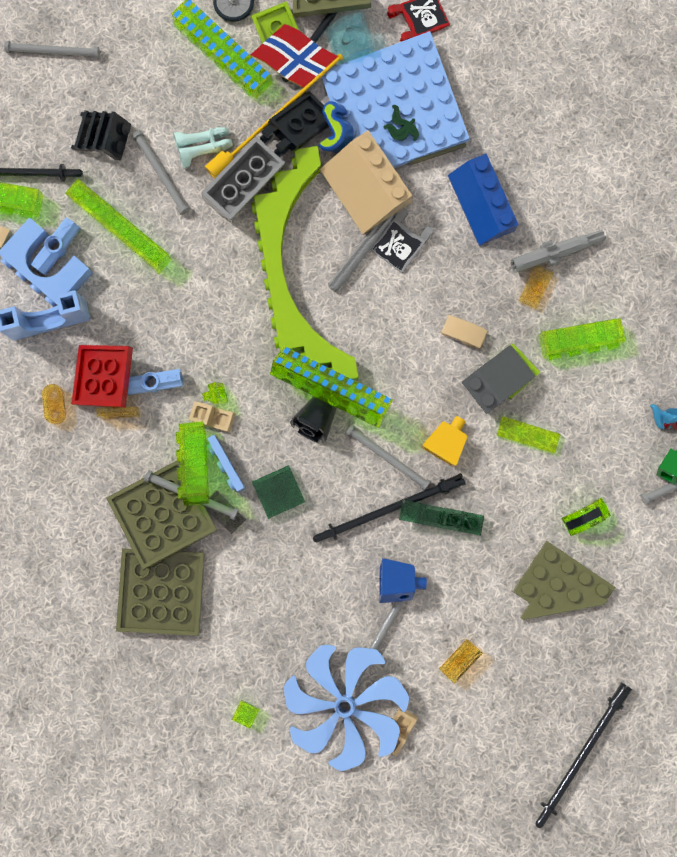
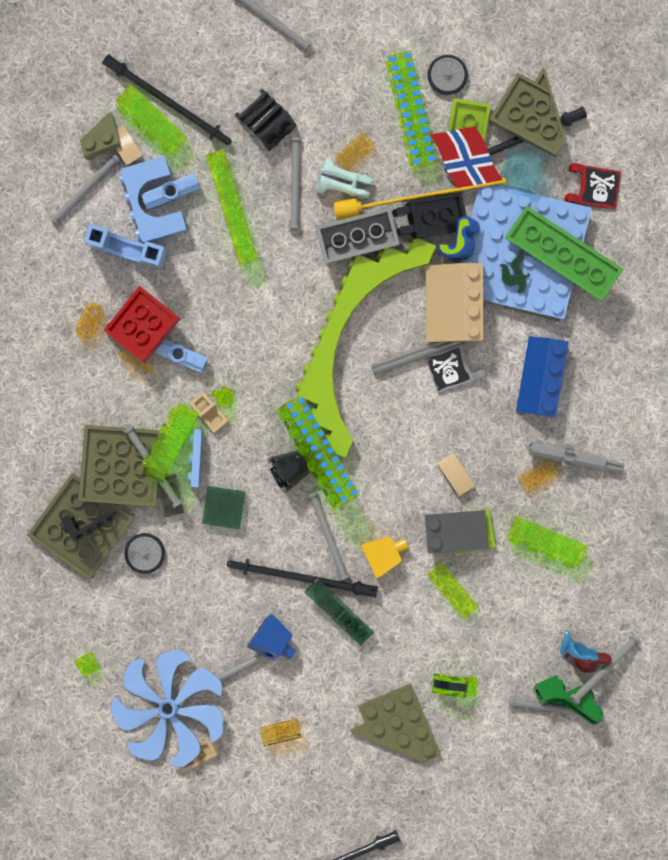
camera: 30 degrees right, 5 degrees up
(149, 596) = (71, 526): none -> black plate
(195, 113) = (355, 151): none -> clear yellow tile
(233, 579) = (144, 553): none -> light grey wheel
(433, 80) = (564, 253): none -> bright green plate

